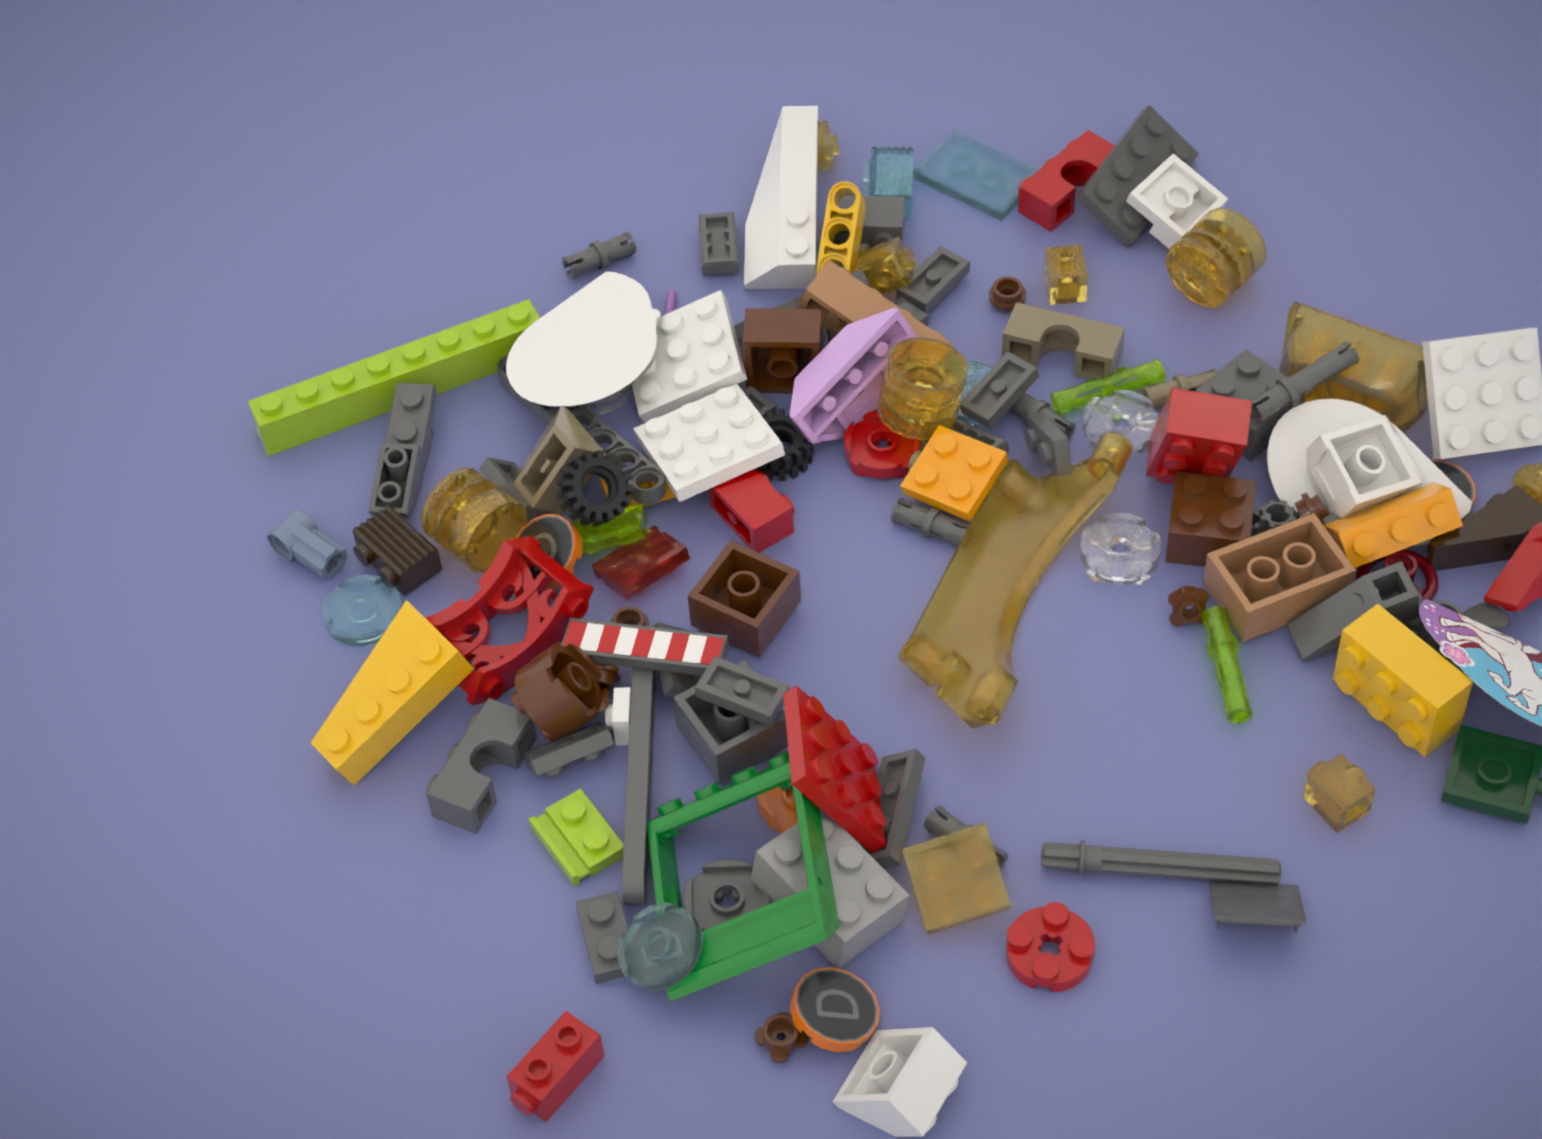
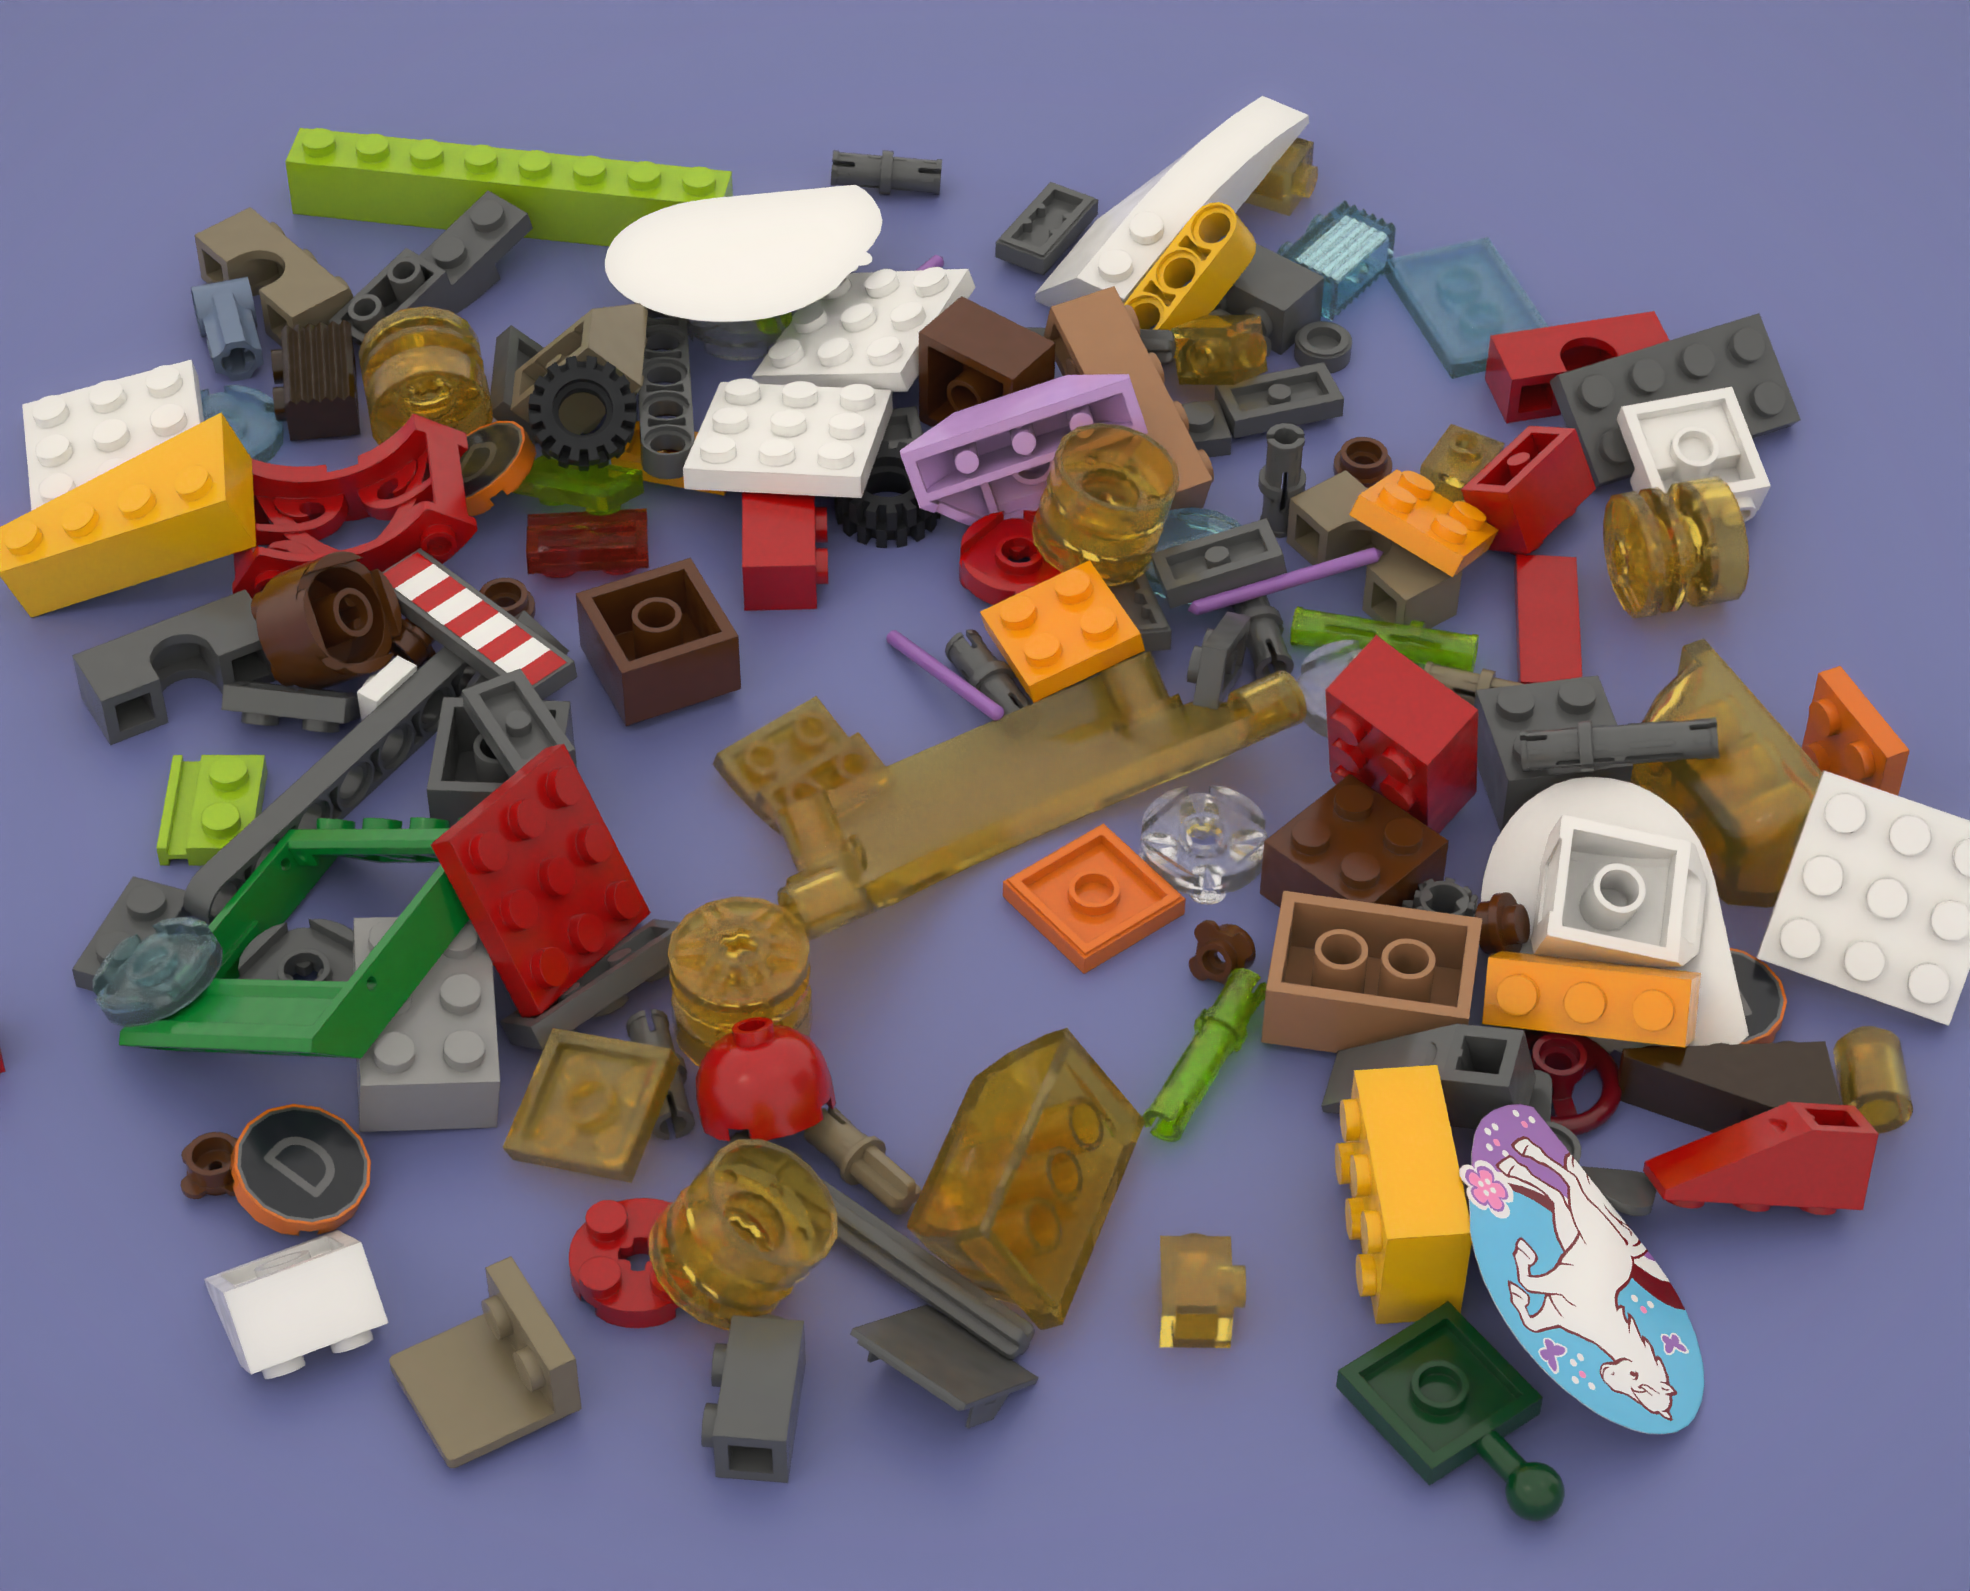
camera: 30 degrees right, 5 degrees down
(280, 492) = (287, 278): none -> dark tan arch
(308, 654) = (104, 425): none -> white plate
(875, 627) = (794, 760): none -> clear yellow slope
(908, 532) = (945, 675): none -> medium lavender axle
(923, 237) = (1323, 343): none -> dark grey tile
(975, 766) = (737, 964): none -> clear yellow wheel
(989, 325) = (1283, 457): none -> dark grey pin
(1038, 814) = (762, 1082): none -> red cylinder
(1039, 1053) = (492, 1373): none -> dark tan bracket
(1040, 382) = (1285, 581): none -> medium lavender axle
(1085, 310) = (1425, 522): none -> light orange plate
(1090, 612) = (1093, 898): none -> orange tile
(1112, 263) = (1531, 487): none -> red brick
(1113, 824) = (863, 1161): none -> dark tan axle
(1114, 900) = (743, 1233): none -> clear yellow wheel
(1176, 334) = (1547, 618): none -> red tile
(1184, 982) = (758, 1398): none -> dark grey brick
(1212, 782) = (1029, 1175): none -> clear yellow windscreen
(1398, 314) = (1851, 736): none -> orange plate

